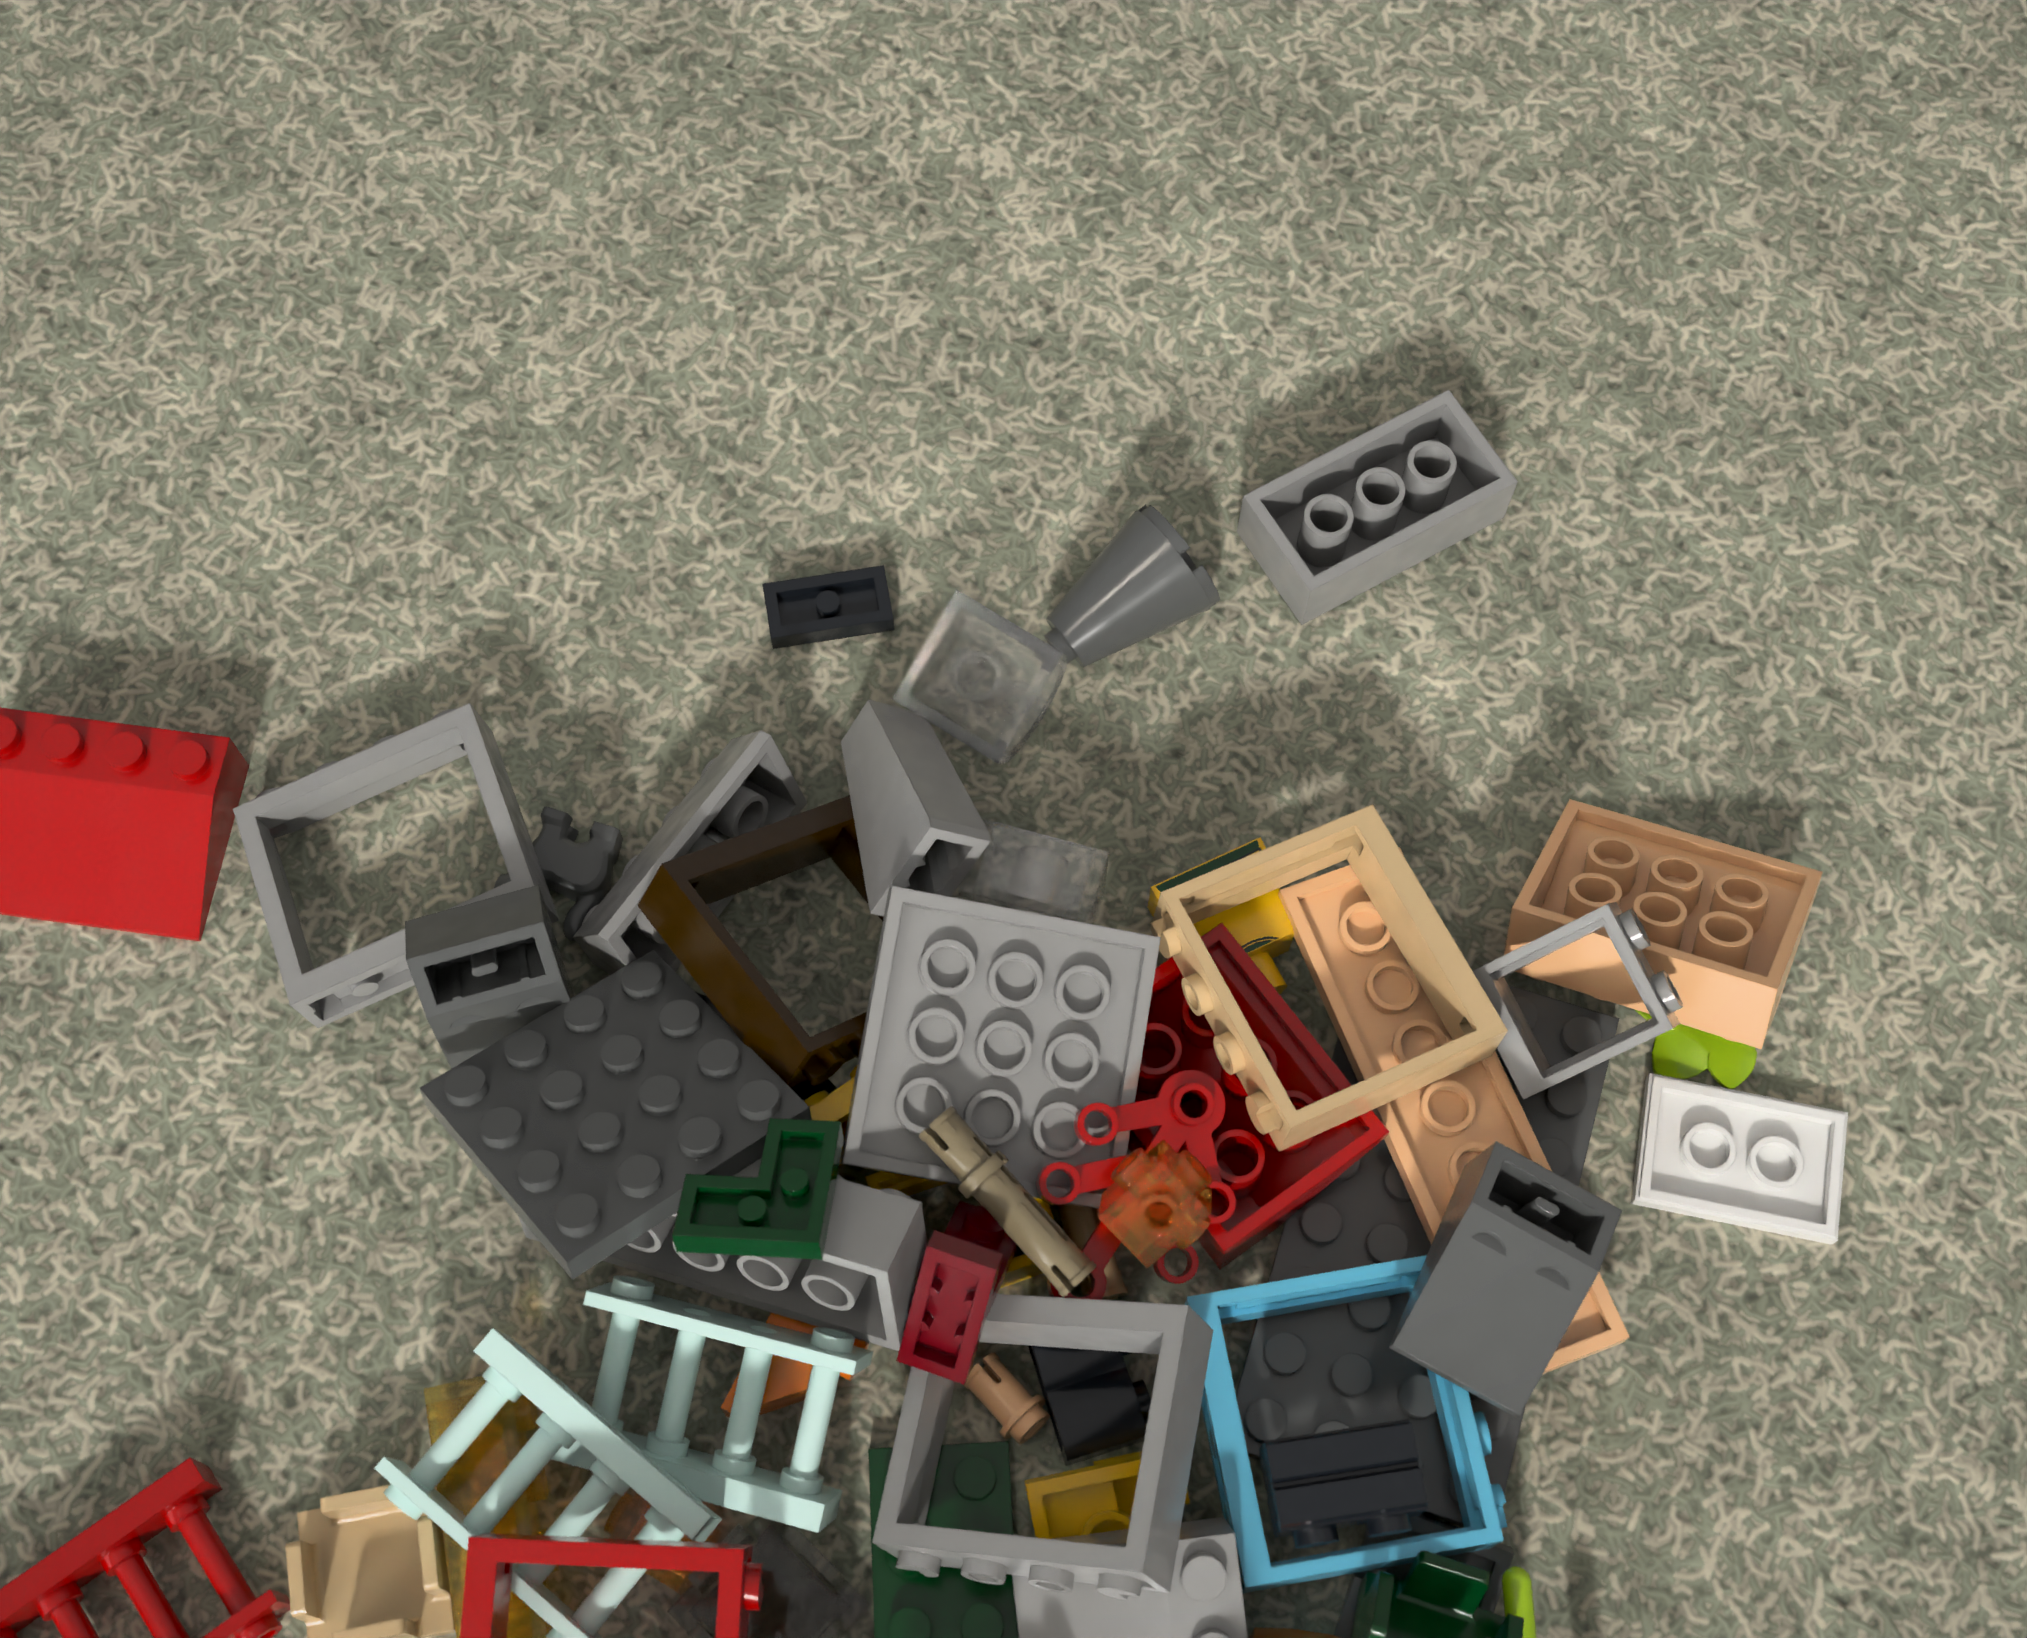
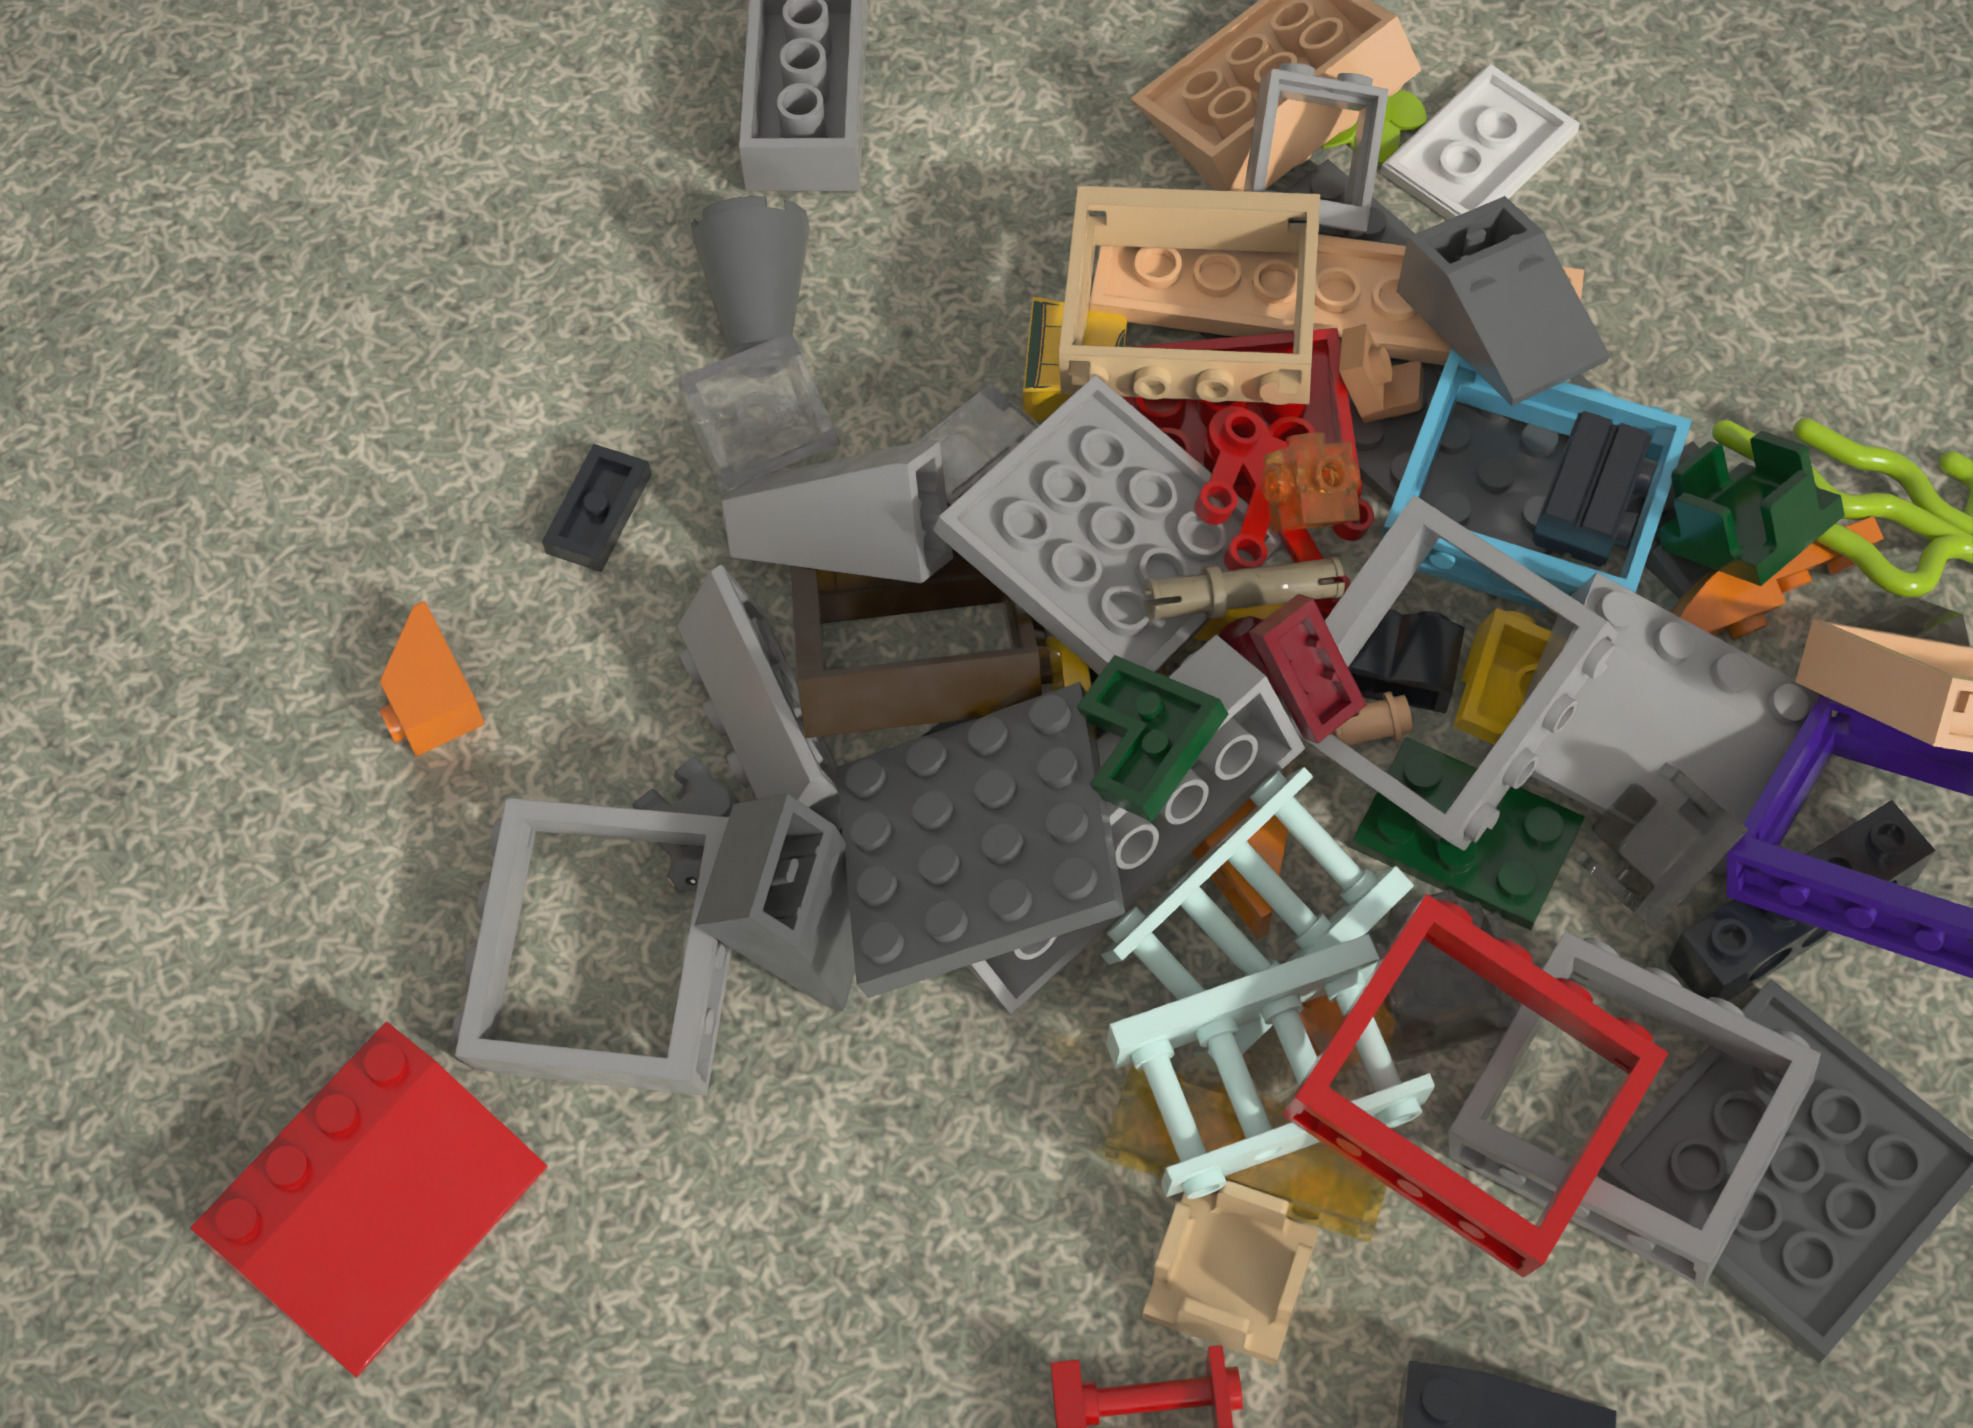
camera: 55 degrees left, 5 degrees down
(575, 579) = (426, 688): none -> orange slope
(1360, 1201) = (1373, 383): none -> medium nougat bracket

